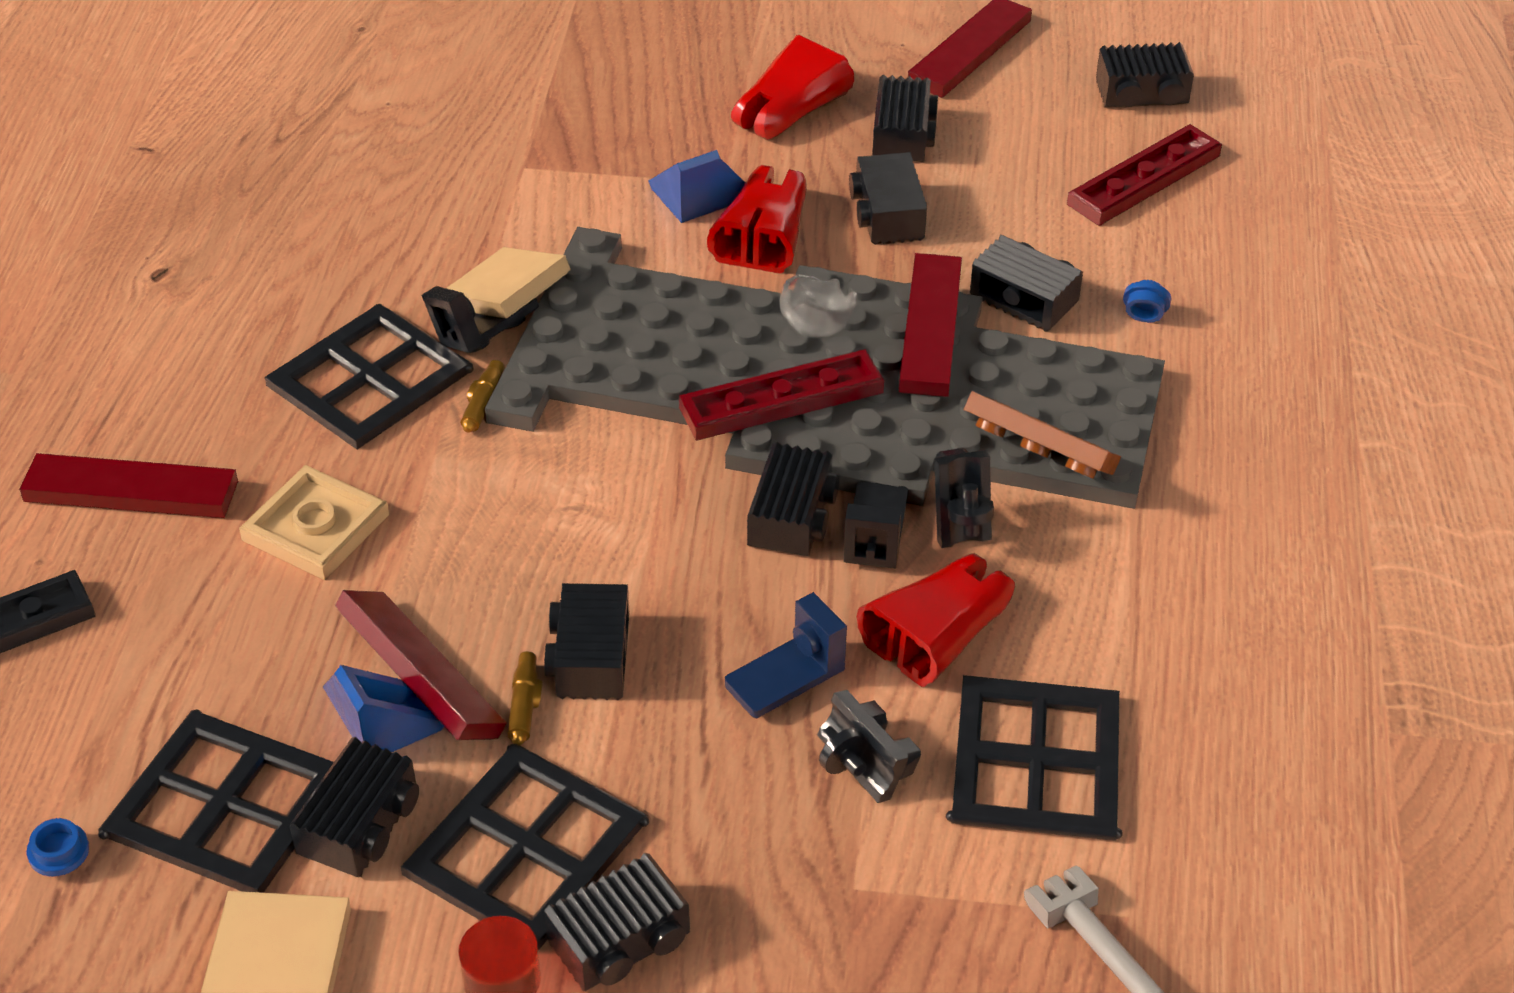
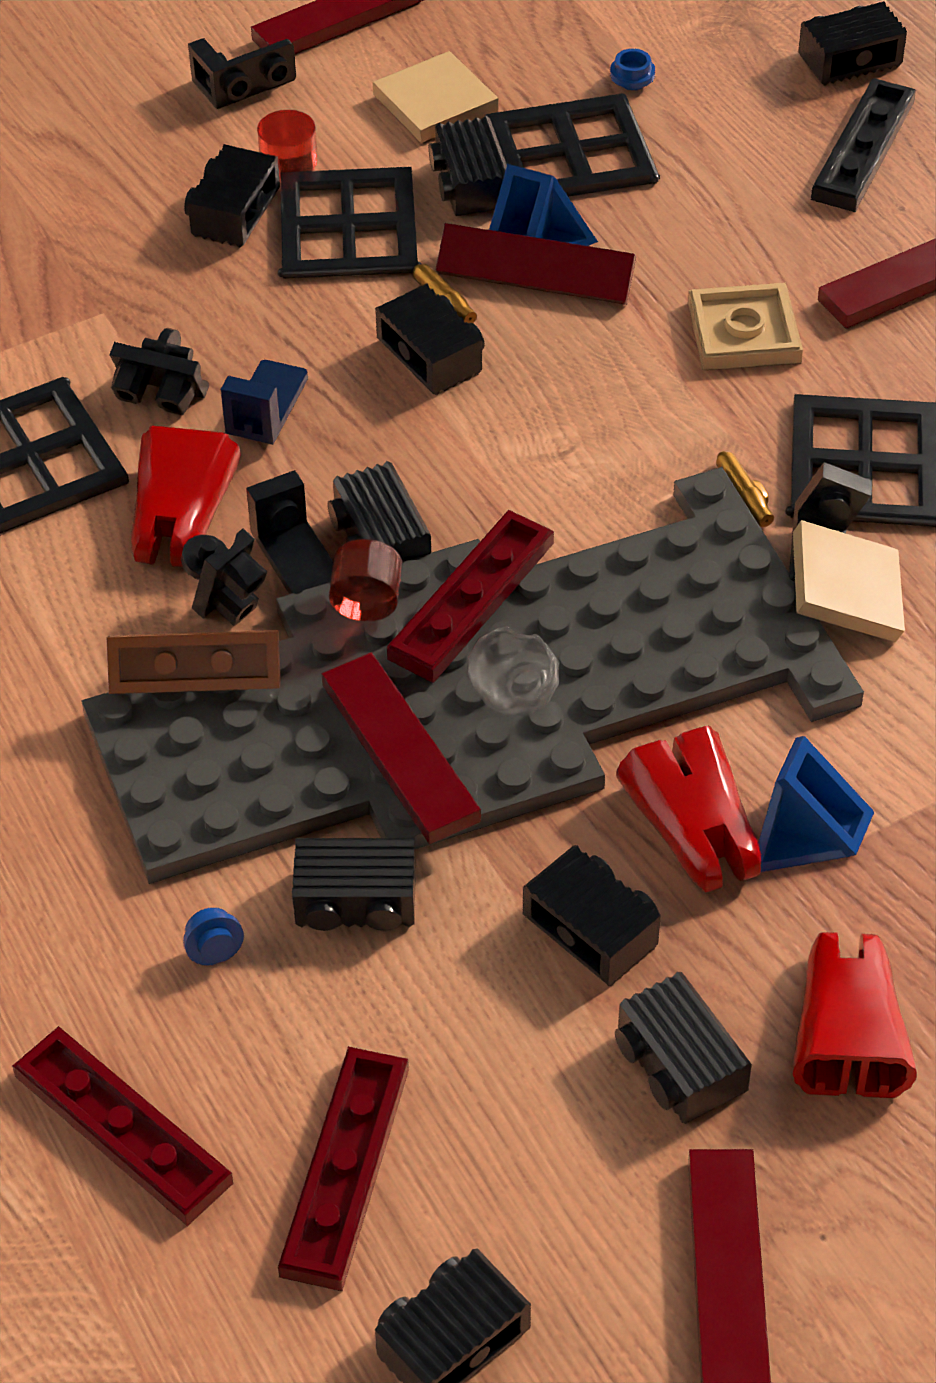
camera: 145 degrees right, 5 degrees up
(863, 417) = (365, 580): none -> clear red piece
(1273, 253) = (123, 1125): none -> dark red tile

